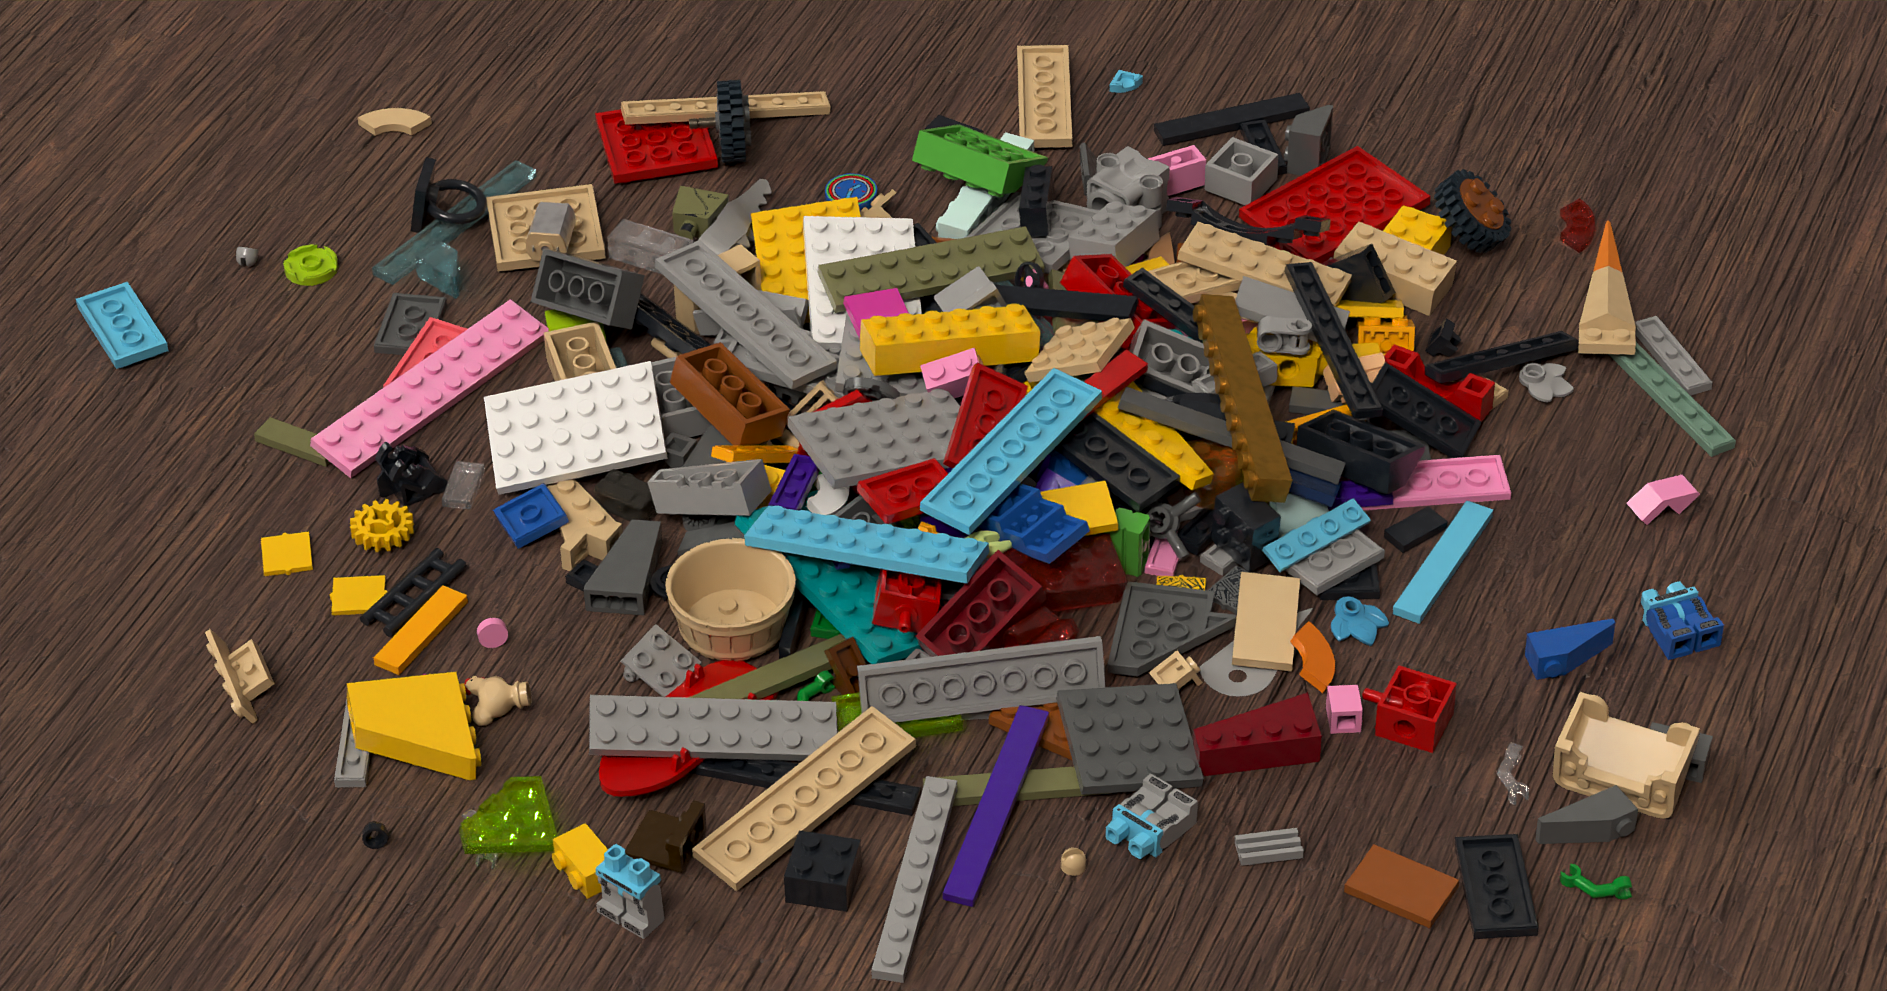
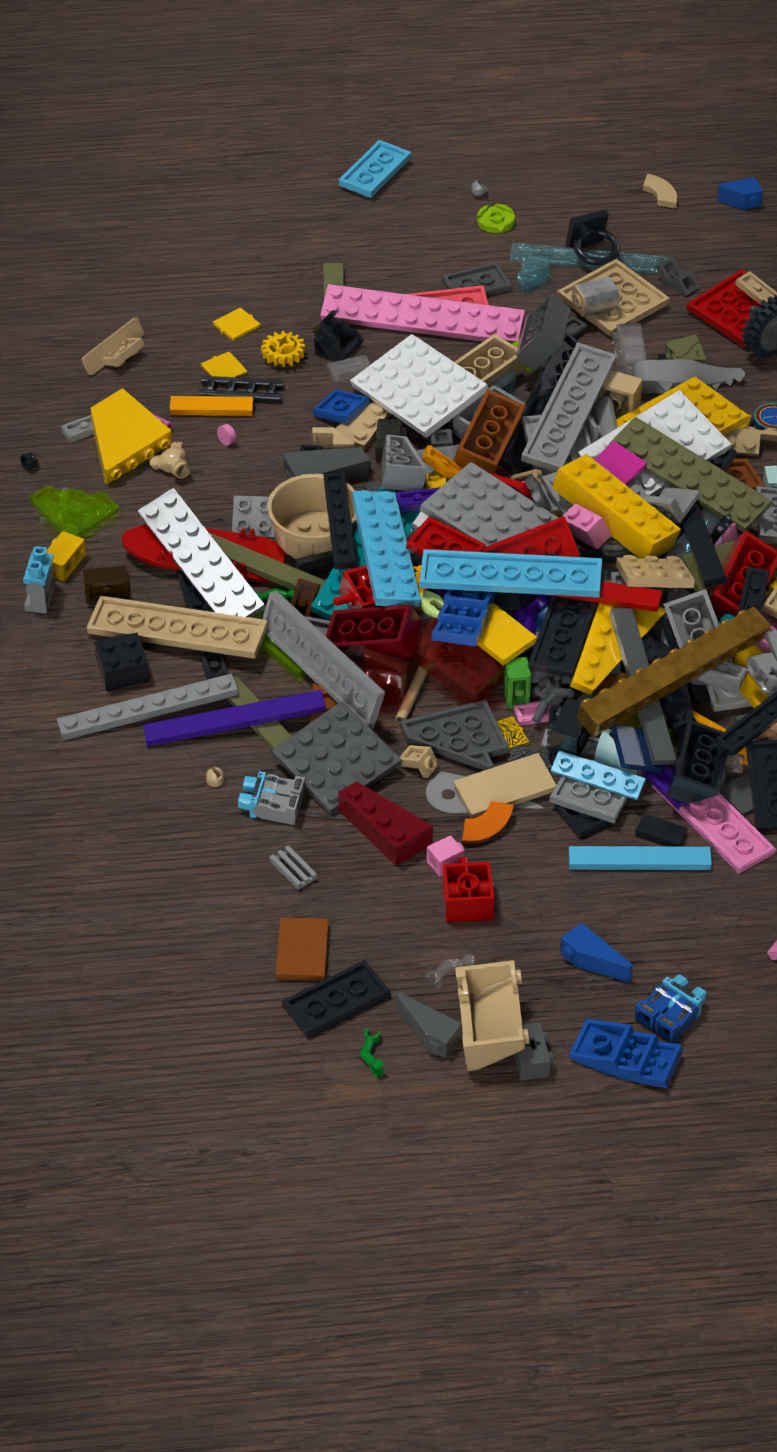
camera: 60 degrees right, 5 degrees up
(467, 62) = (741, 193): none -> blue slope
(563, 168) = (672, 276): none -> dark grey slope
(779, 568) = (339, 521): none -> black tile
(1359, 623) = (539, 835): dark azure plate -> none
(1719, 680) = (626, 1053): none -> blue slope

